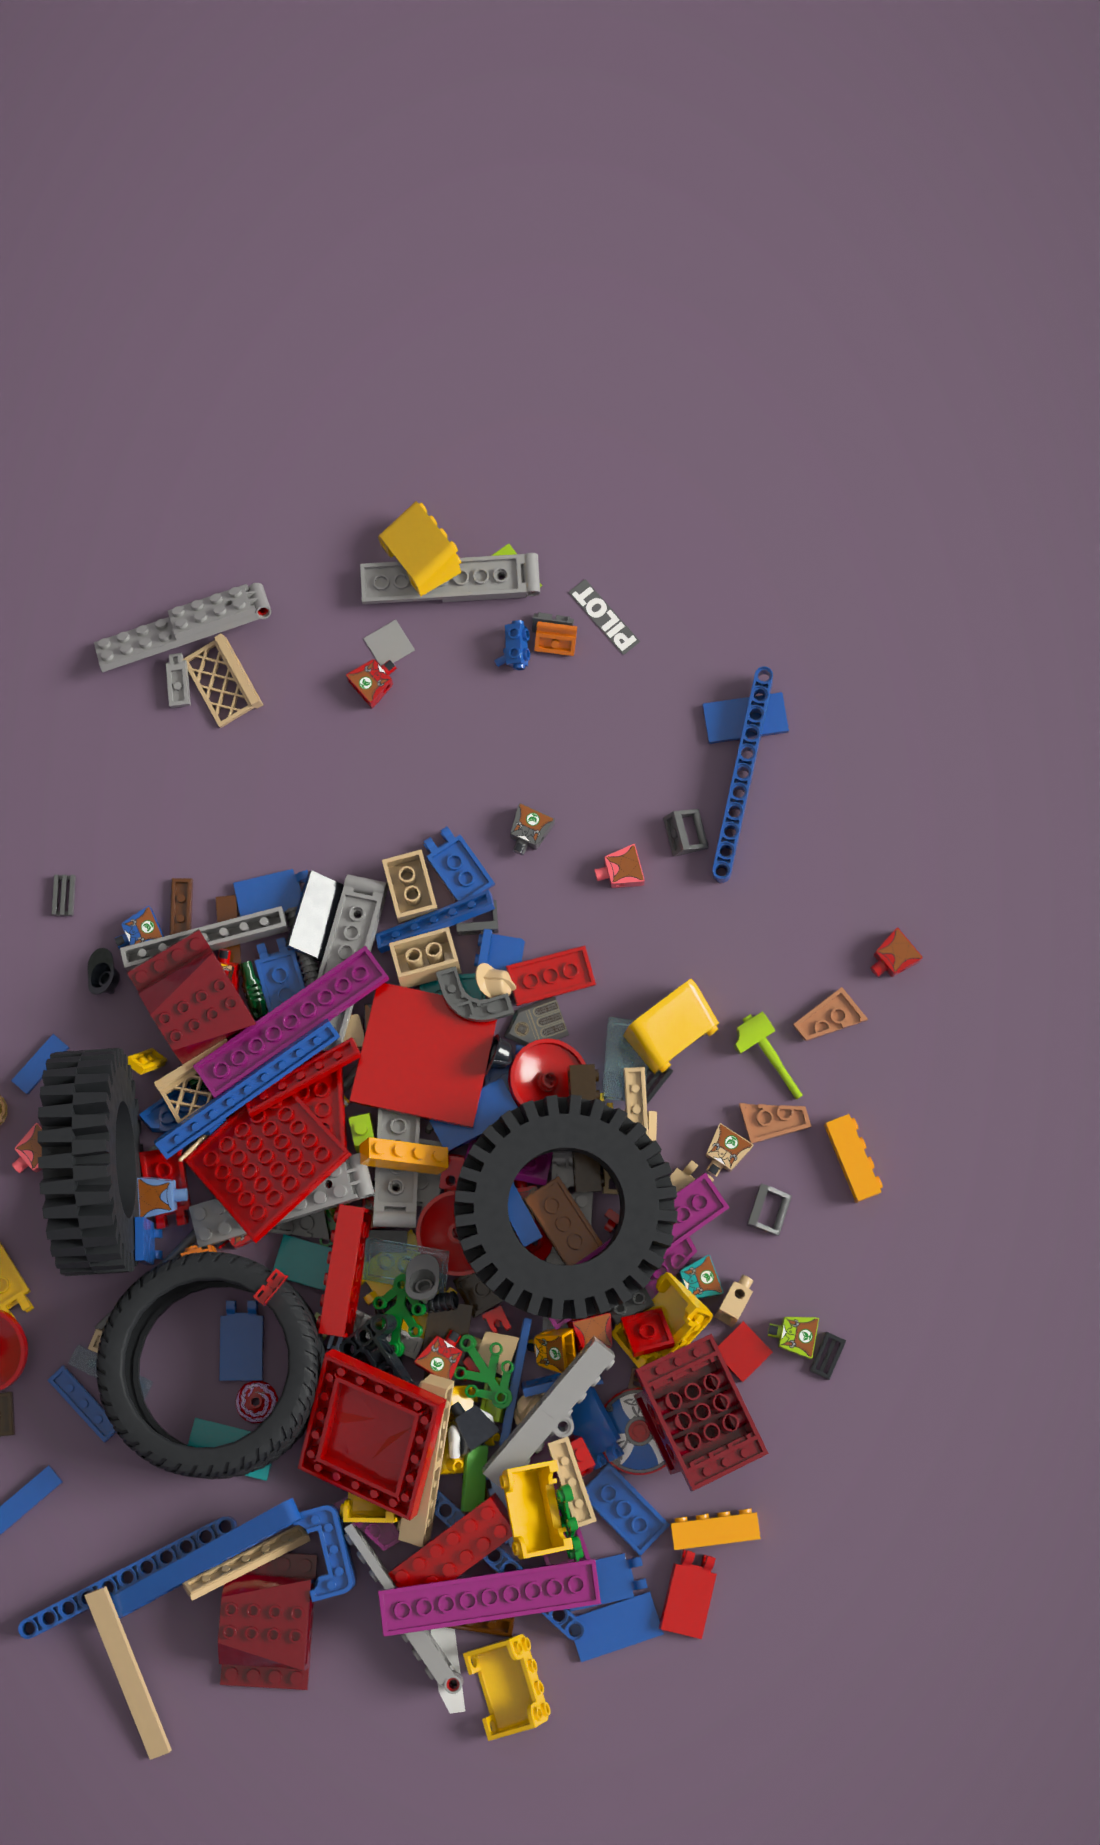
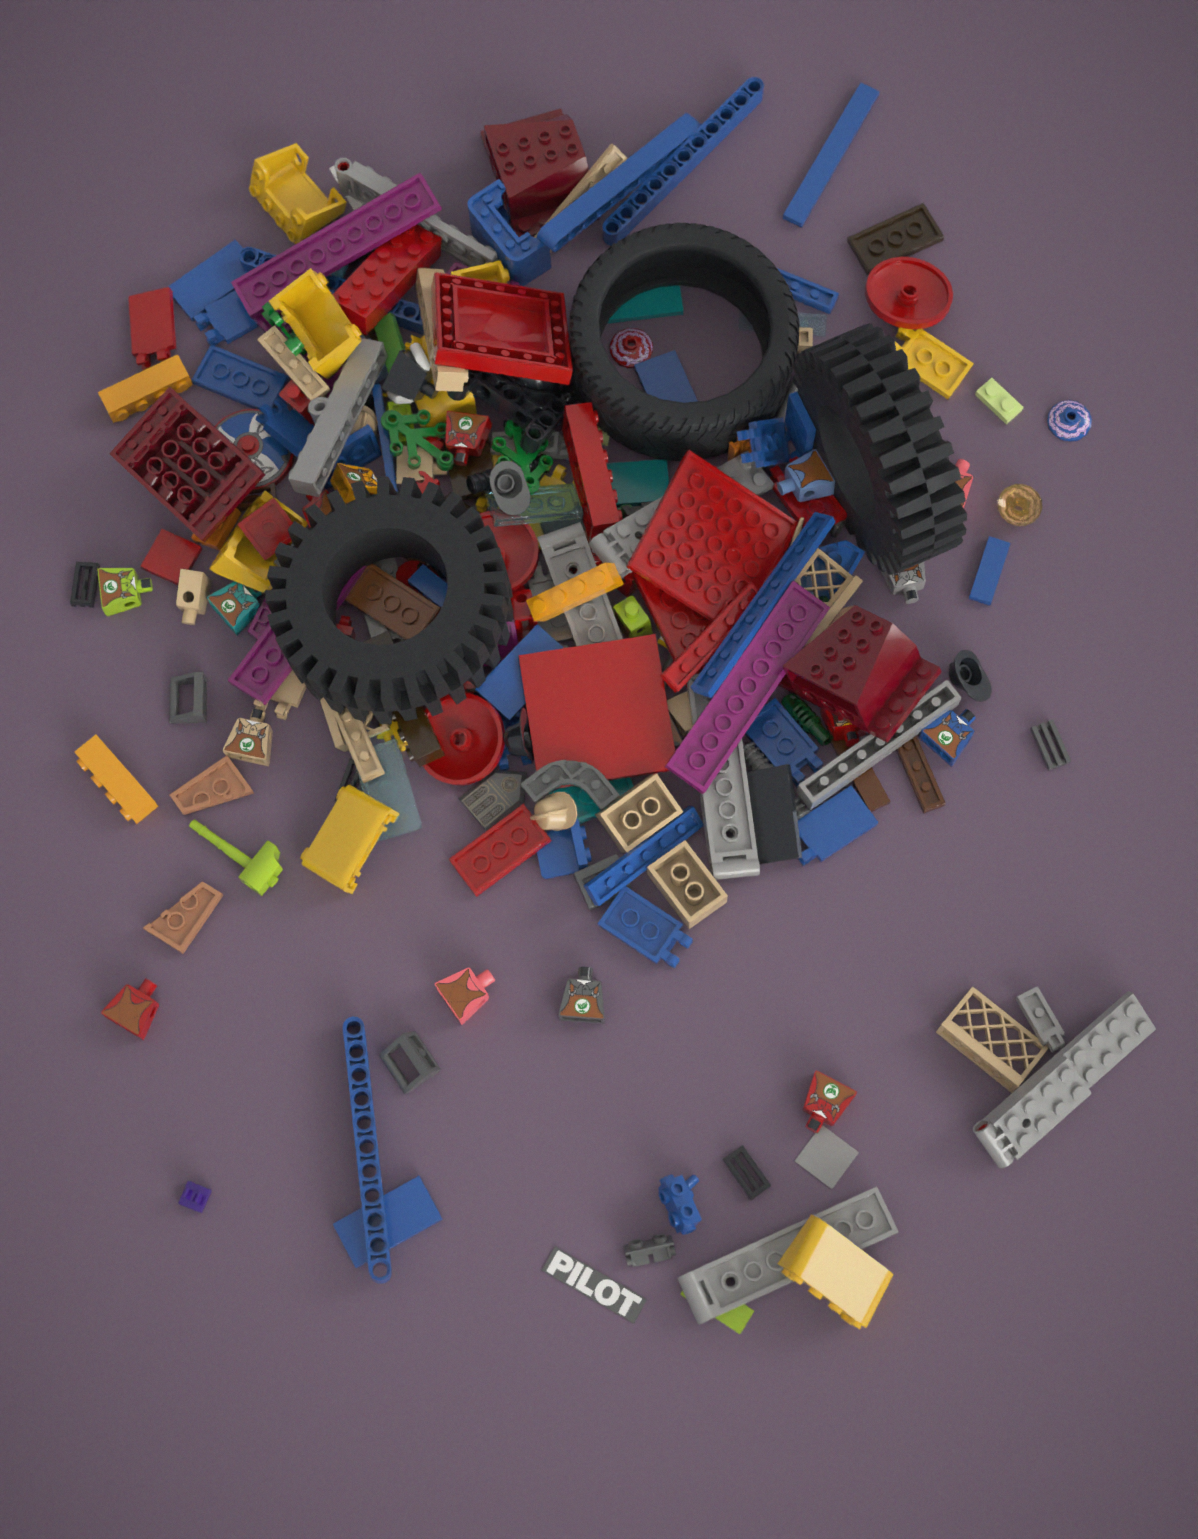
camera: 160 degrees right, 5 degrees down
(128, 1672) = (648, 85): tan tile -> none
(146, 1061) = (882, 594): yellow tile -> none
(181, 1237) = (767, 442): none -> blue tile
(267, 1290) = (652, 404): red piece -> none
(459, 669) = (734, 1155): none -> black tile
(555, 638) = (638, 1230): orange plate -> none
(890, 791) = (194, 1197): none -> dark purple tile

